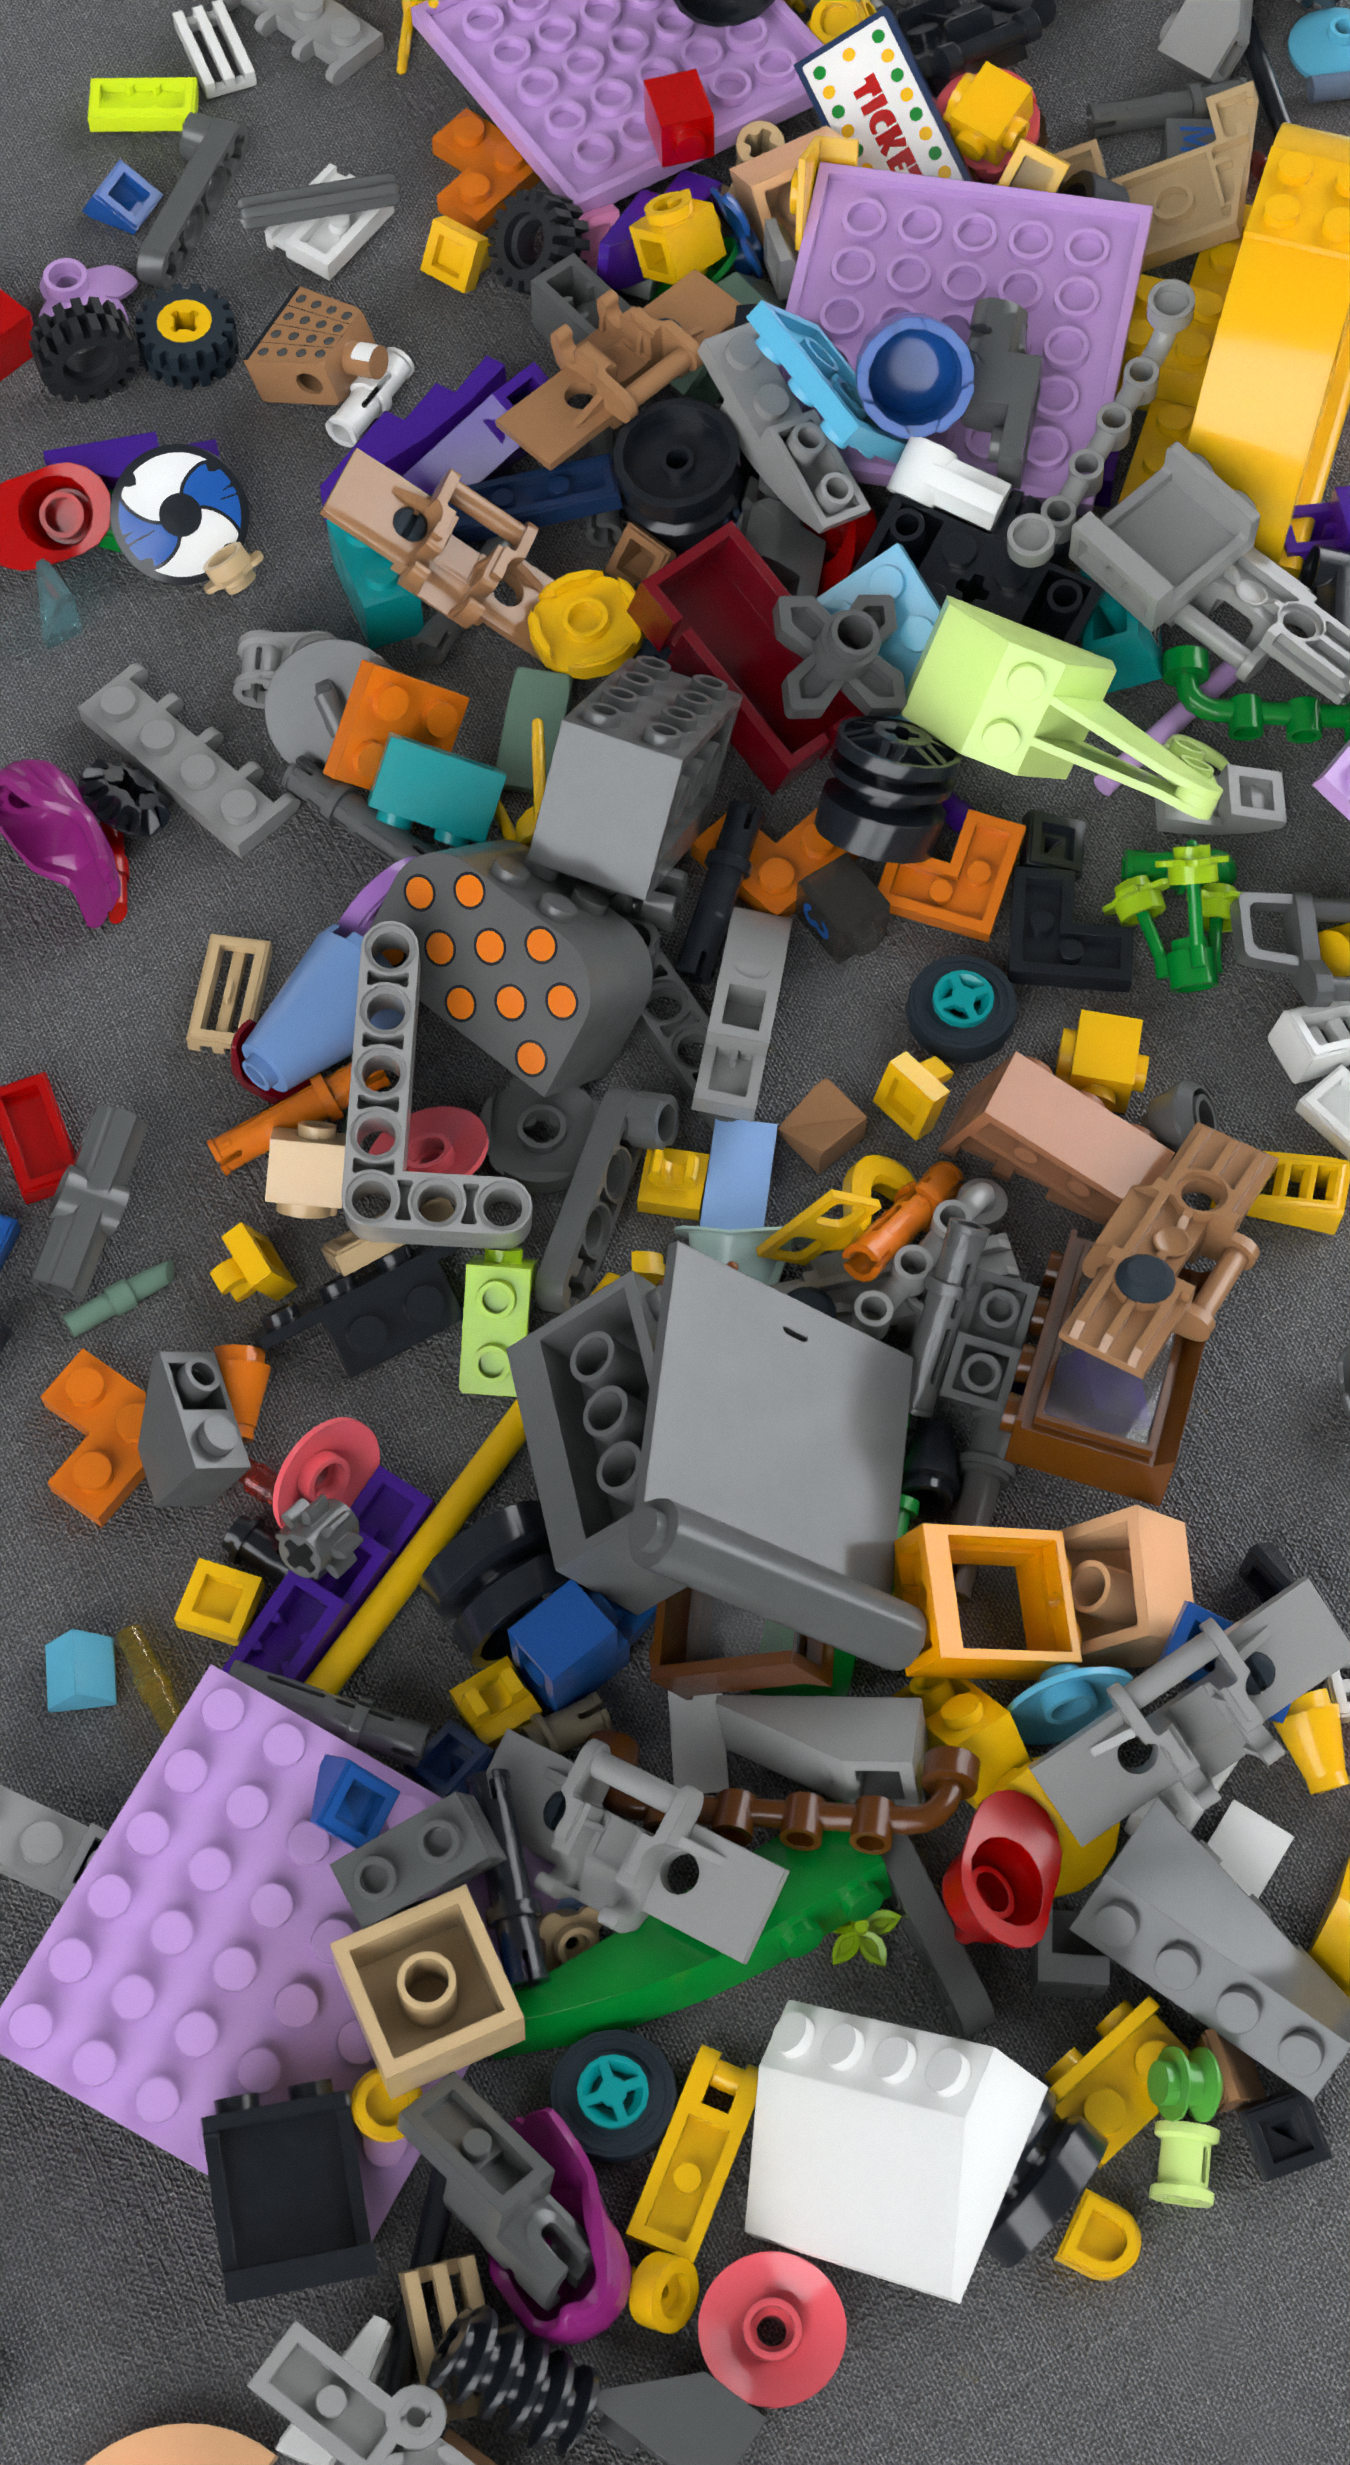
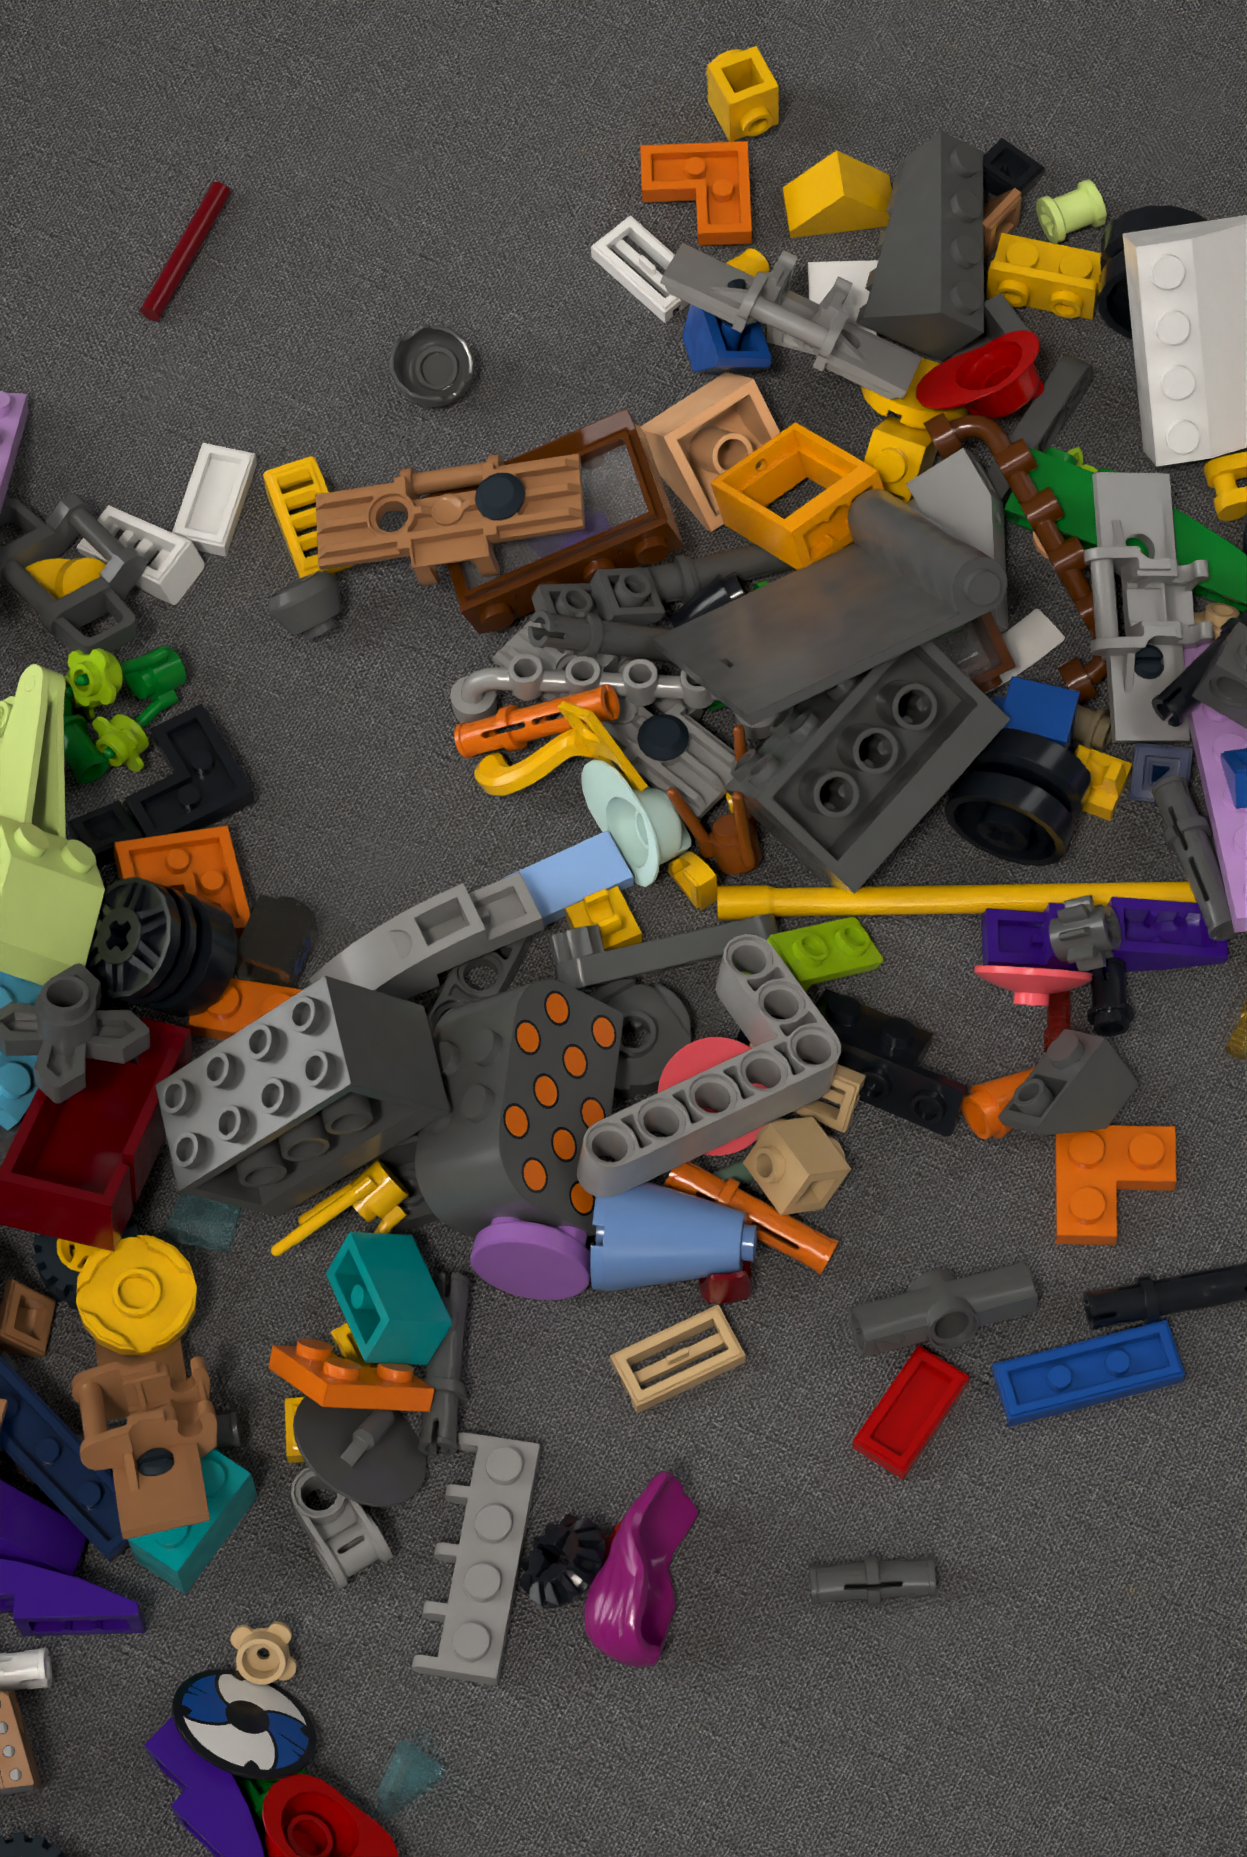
camera: 120 degrees left, 0 degrees up
(119, 1298) = (993, 1248): sand green piece -> none
(219, 1602) = (1174, 989): yellow tile -> none
(252, 1267) = (902, 1159): yellow tile -> none
(532, 696) = (261, 1292): sand green slope -> none
(823, 1126) = (482, 845): medium nougat slope -> none
(913, 1093) = (409, 795): yellow tile -> none
(971, 988) = (304, 791): black wheel -> none
(1055, 1137) = (388, 675): nougat wedge -> none
(1064, 1702) = (827, 416): medium azure dish -> none
(1103, 1058) = (290, 687): yellow brick -> none
(1186, 2084) = (1030, 218): bright green wheel -> none
(1265, 1571) = (631, 368): black slope -> none

